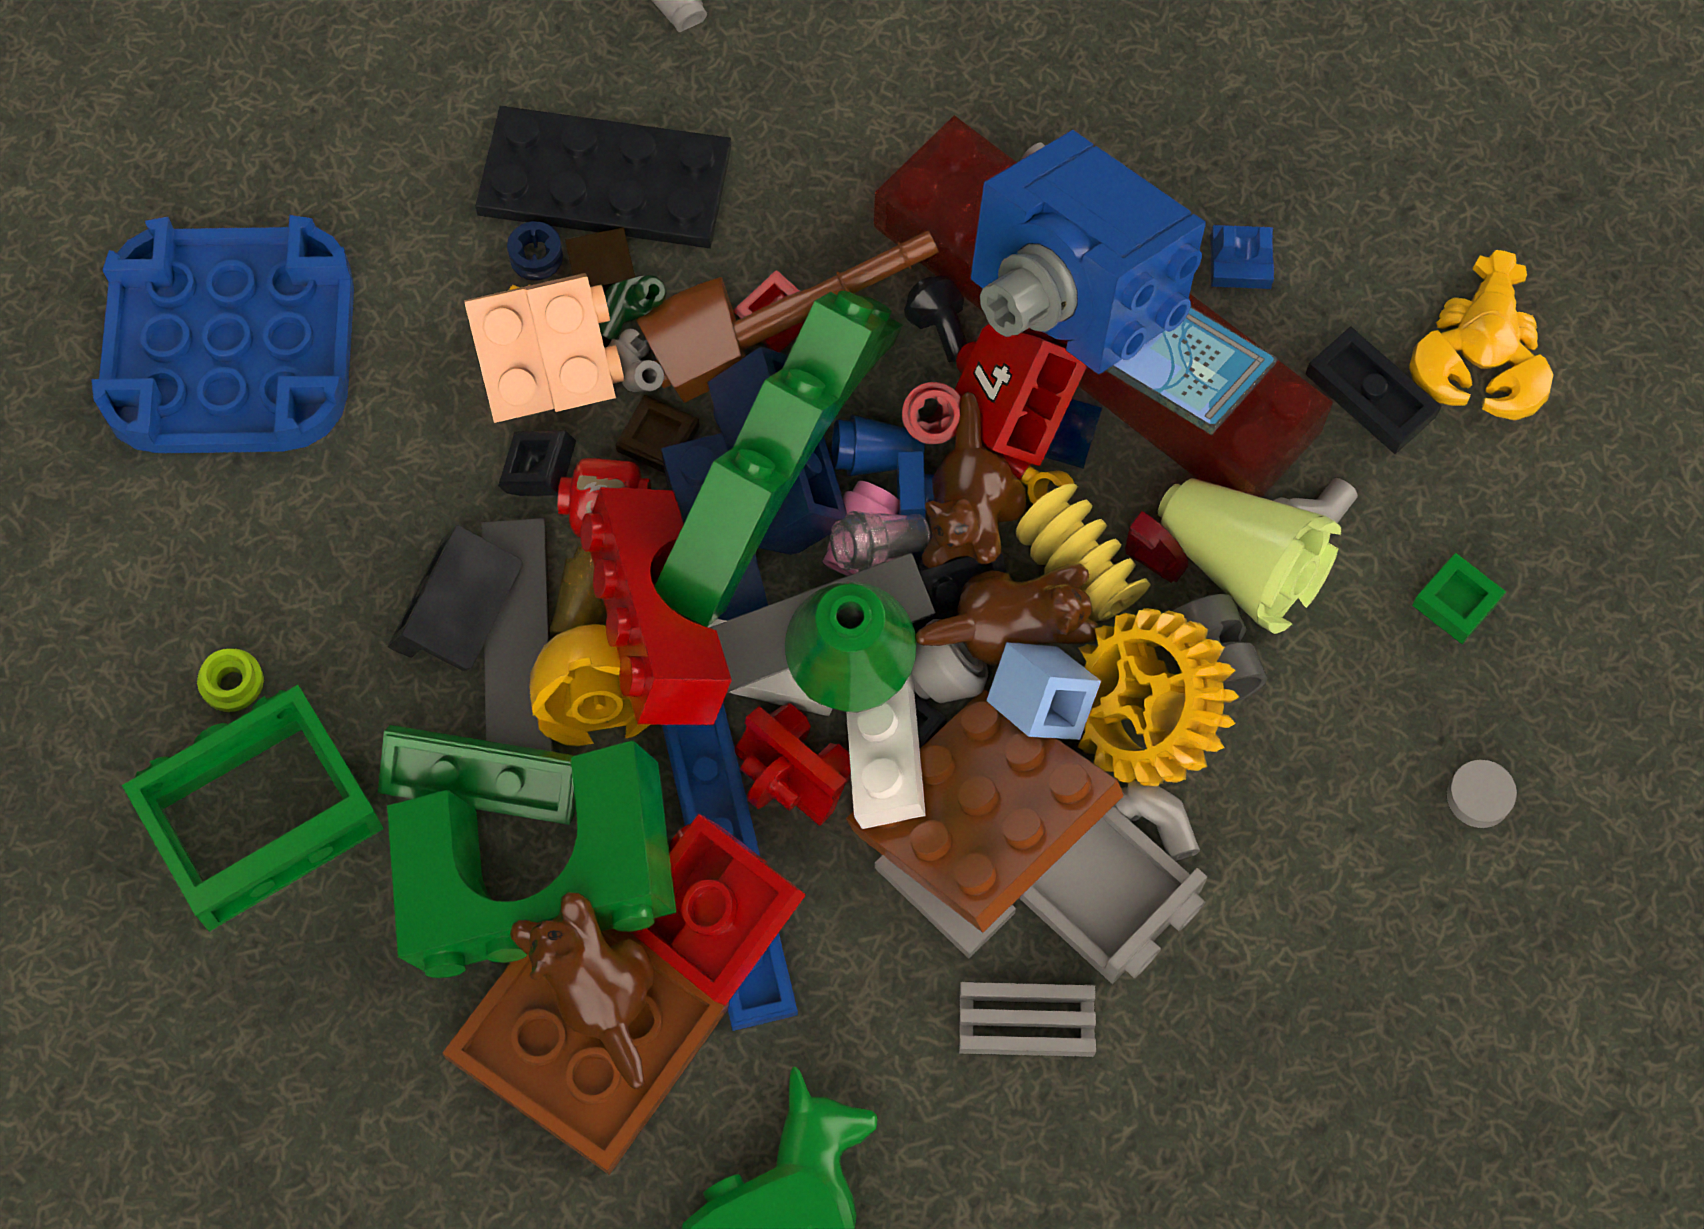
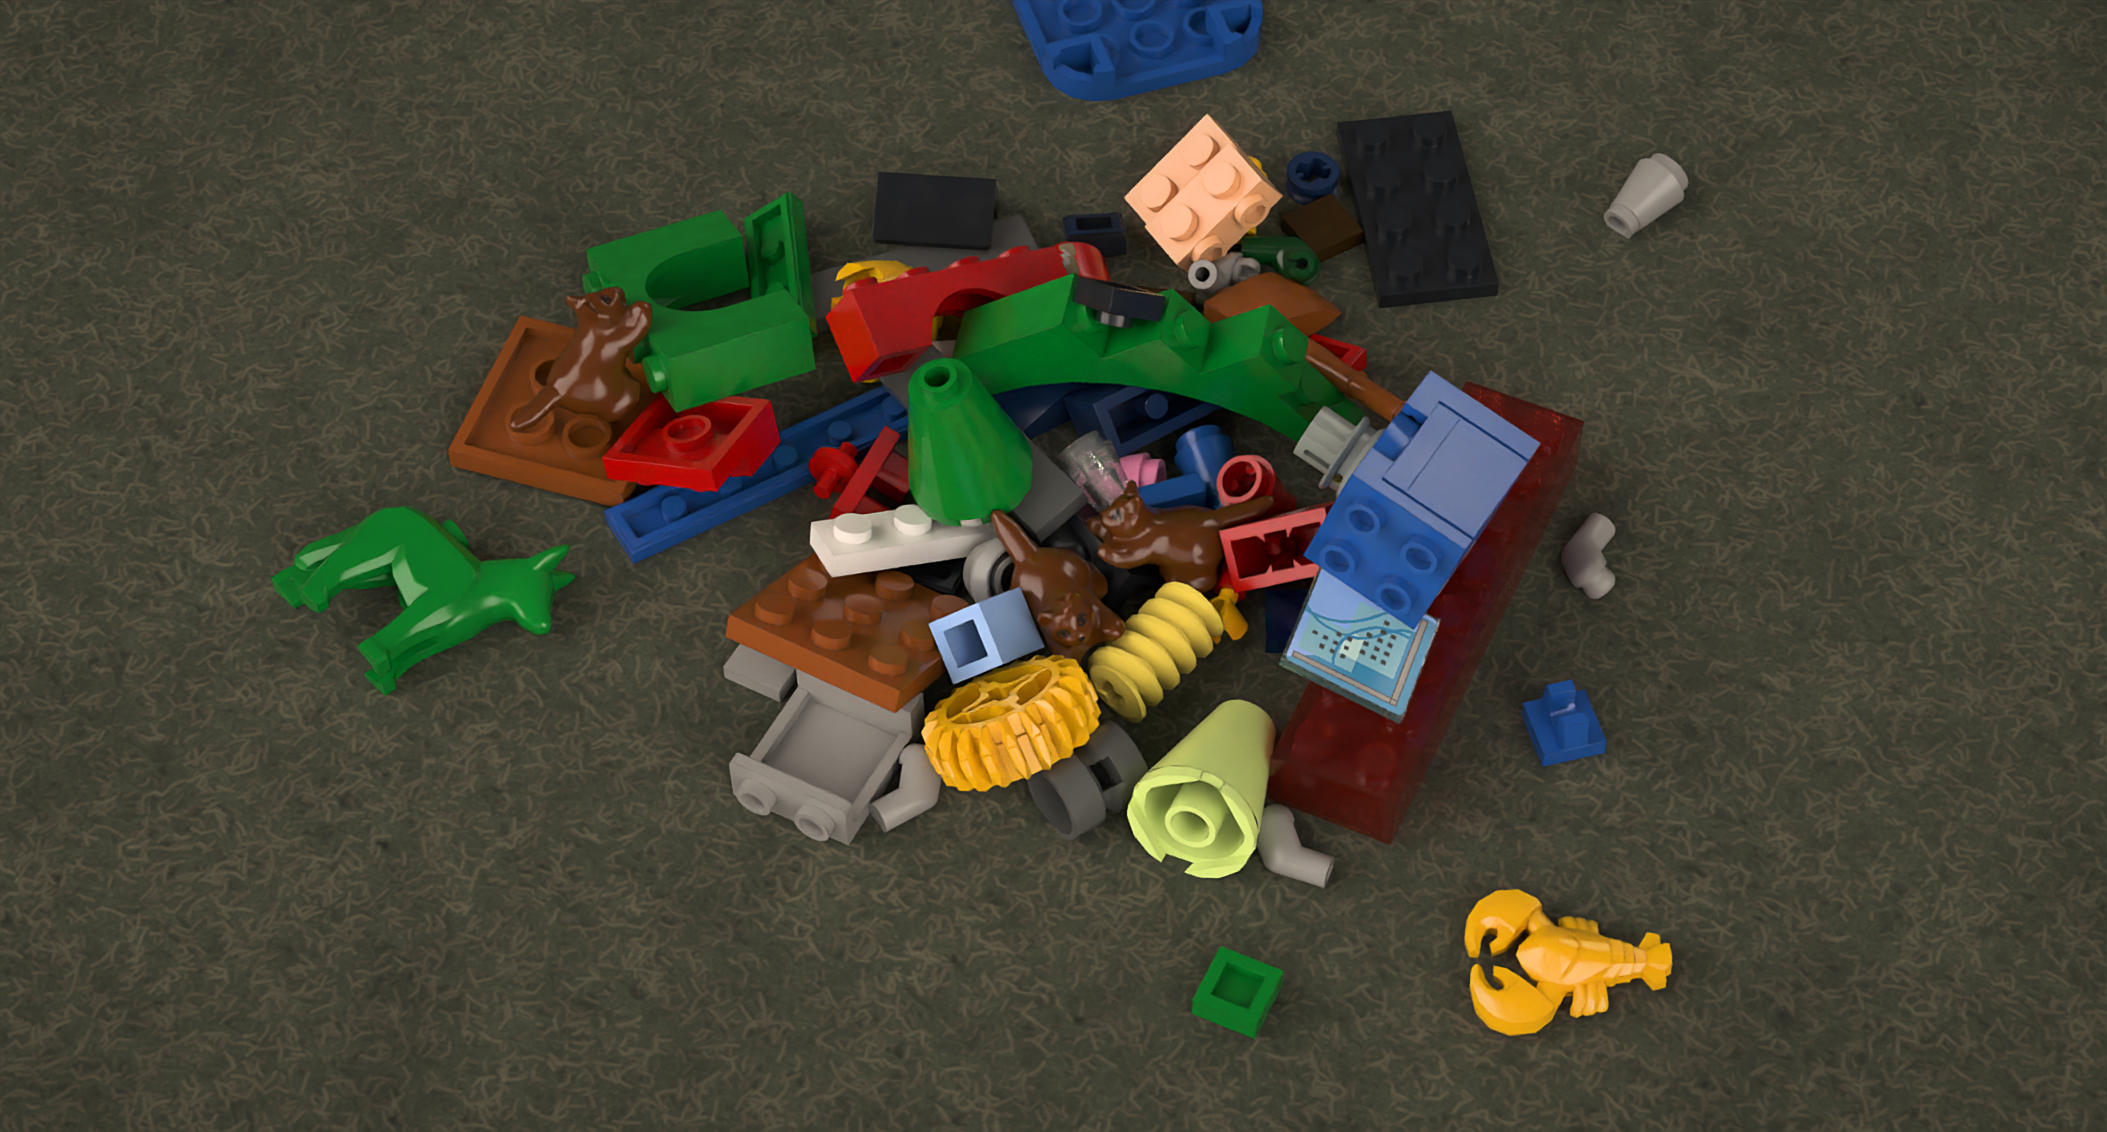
camera: 75 degrees right, 15 degrees down
(225, 662) = (813, 95): lime plate -> none
(280, 861) = (619, 138): green window -> none
(765, 431) = (1118, 302): none -> black plate
(1014, 992) = (665, 688): light grey tile -> none
(1155, 548) = (1197, 705): dark red tile -> none
(1373, 390) = (1450, 869): black plate -> none
(1481, 793) = (1028, 1060): light grey tile -> none

